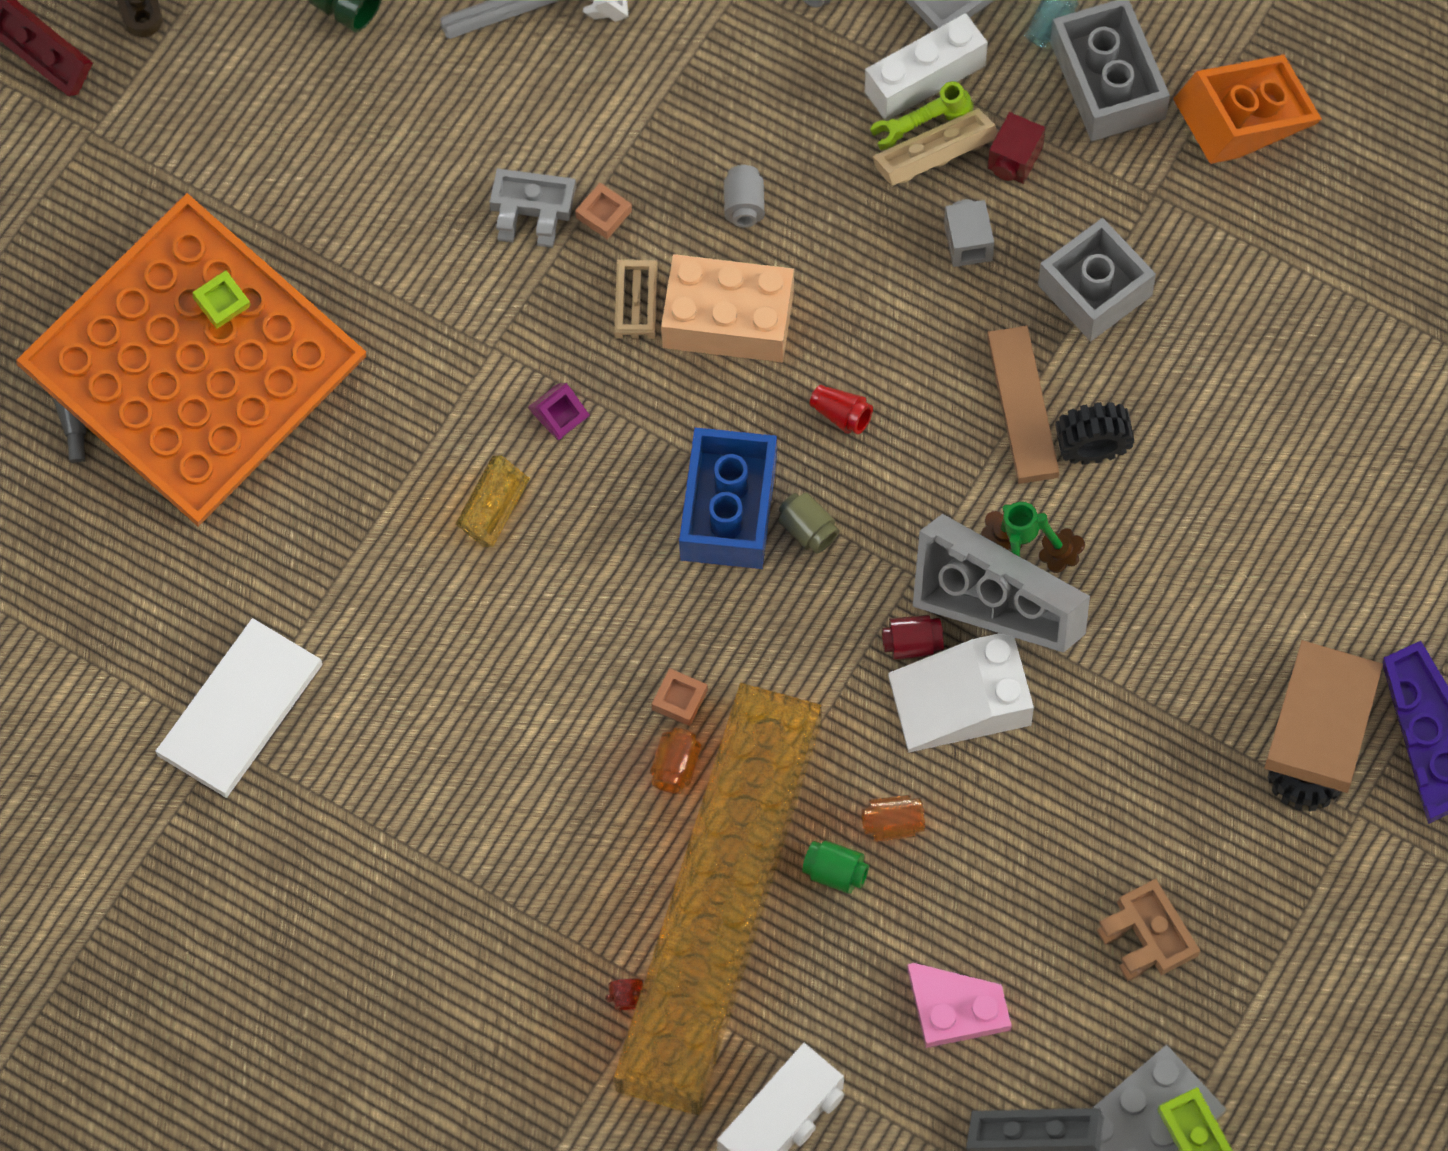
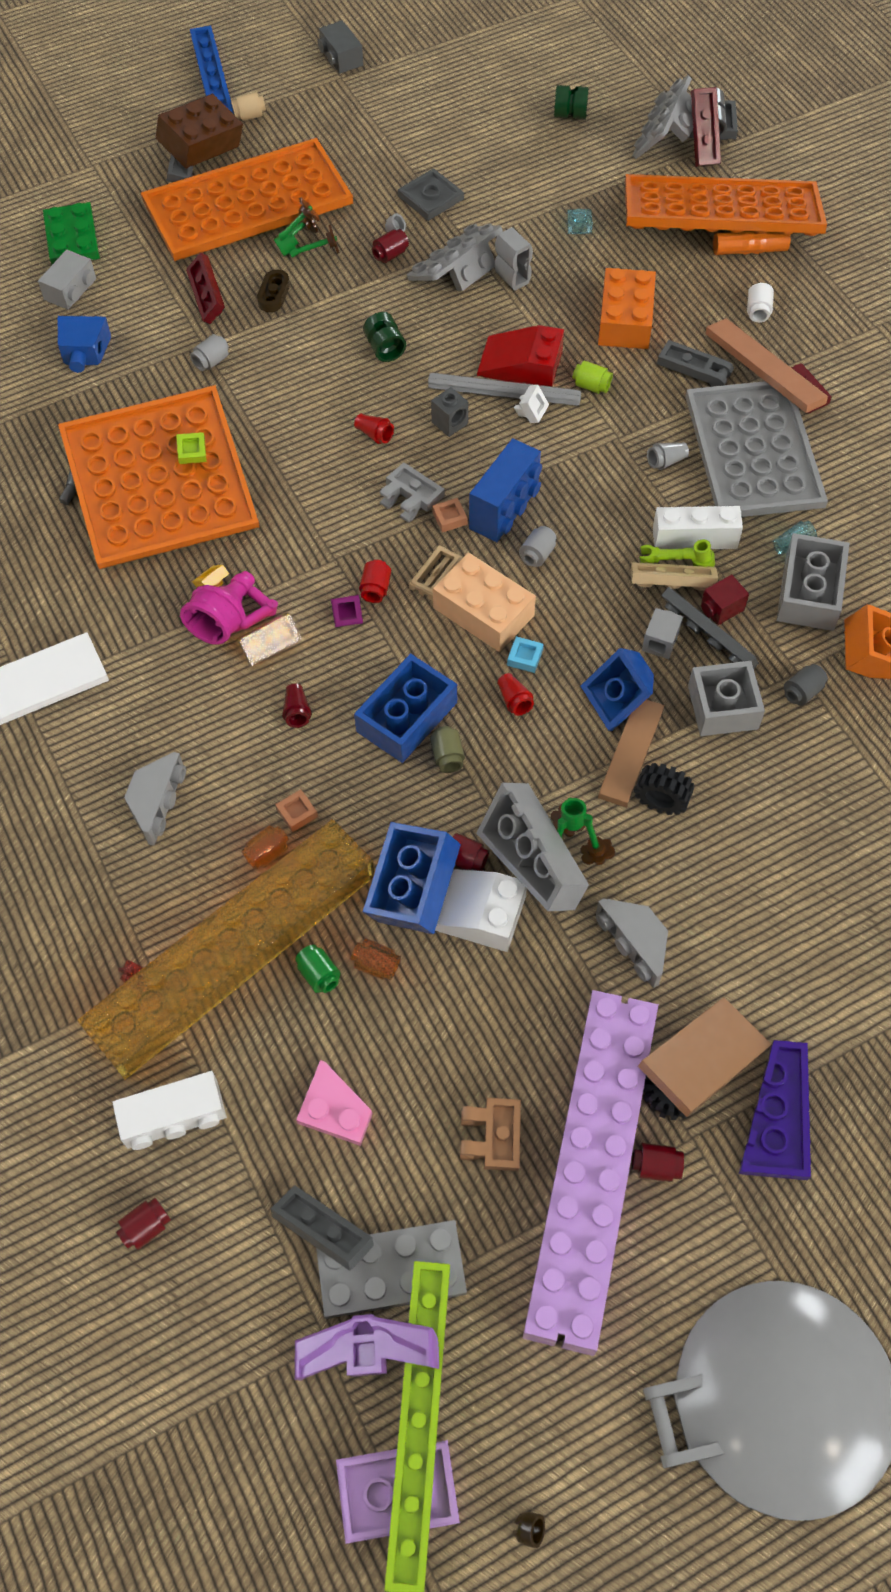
camera: 30 degrees right, 5 degrees down
(119, 141) = (209, 352): none -> light grey brick
(359, 460) = (212, 576): none -> yellow plate
(406, 500) = (219, 611): none -> dark pink piece
(422, 137) = (376, 428): none -> red cone
(495, 776) = (153, 794): none -> light grey slope
(508, 64) = (449, 411): none -> dark grey brick
(571, 352) = (375, 581): none -> red brick
(588, 570) = (296, 707): none -> dark red cone
(661, 142) = (505, 490): none -> blue brick
(821, 350) = (525, 654): none -> medium azure plate
(879, 700) = (412, 877): none -> blue brick
(963, 332) = (619, 686): none -> blue slope
(1038, 203) = (699, 622): none -> dark grey plate
(1167, 624) = (637, 935): none -> light grey slope
(1175, 209) = (805, 684): none -> dark grey brick
(1277, 906) = (591, 1175): none -> lavender piece
(1340, 860) = (658, 1162): none -> dark red brick

